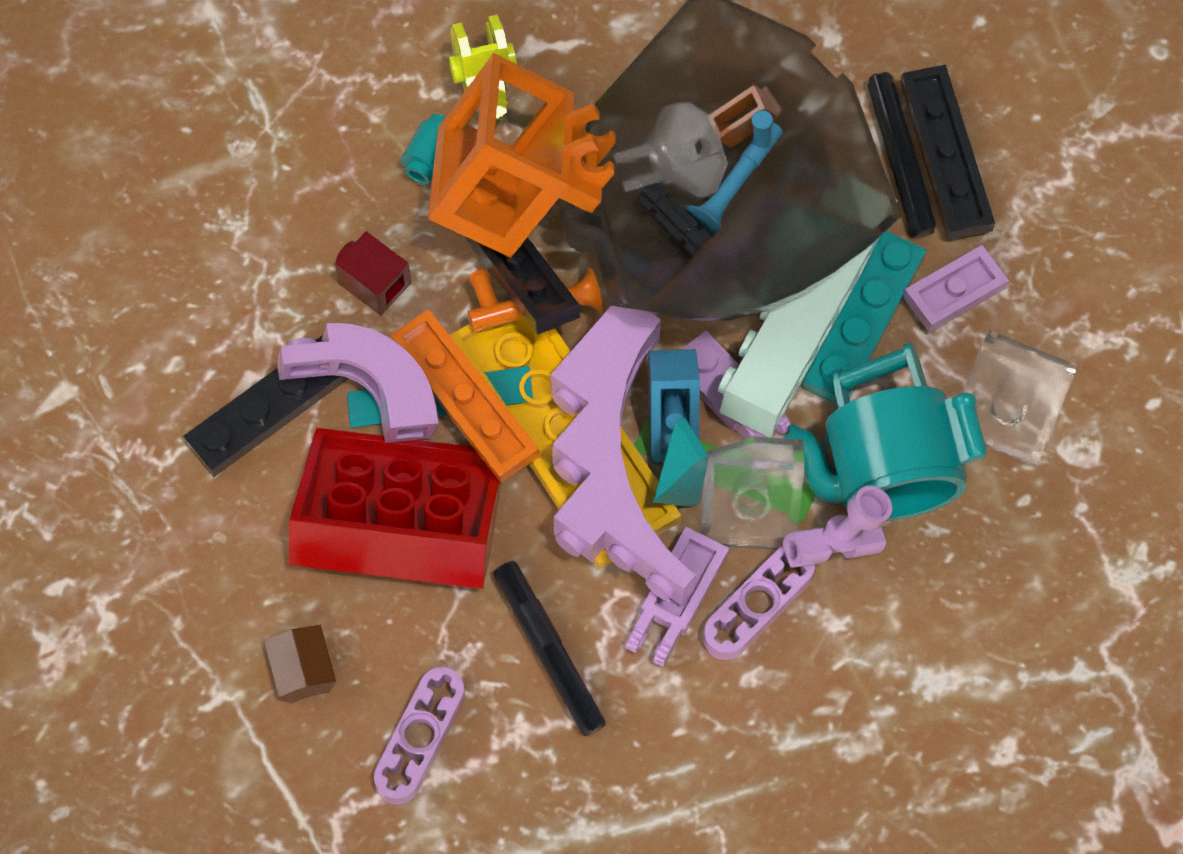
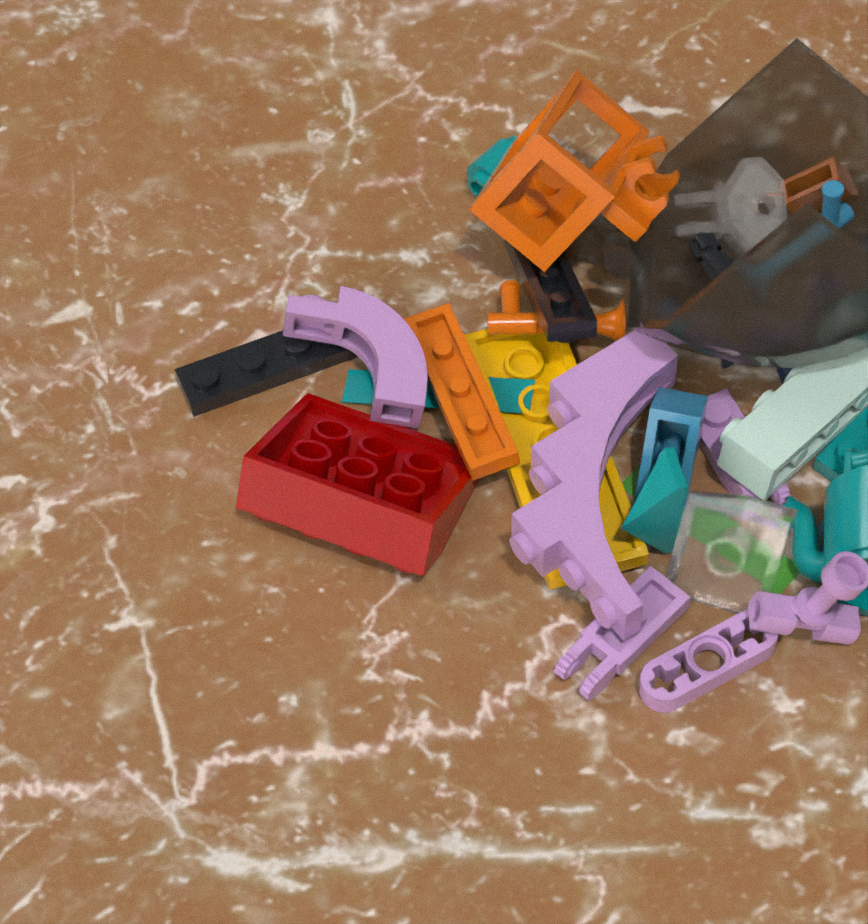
camera: 20 degrees right, 10 degrees down
(300, 663) = (215, 604): reddish brown piece -> none
(372, 272) = (407, 264): dark red brick -> none
(392, 762) = (277, 721): lavender beam -> none
(468, 62) = (578, 118): neon yellow hinge -> none
(549, 648) = (474, 653): black axle -> none

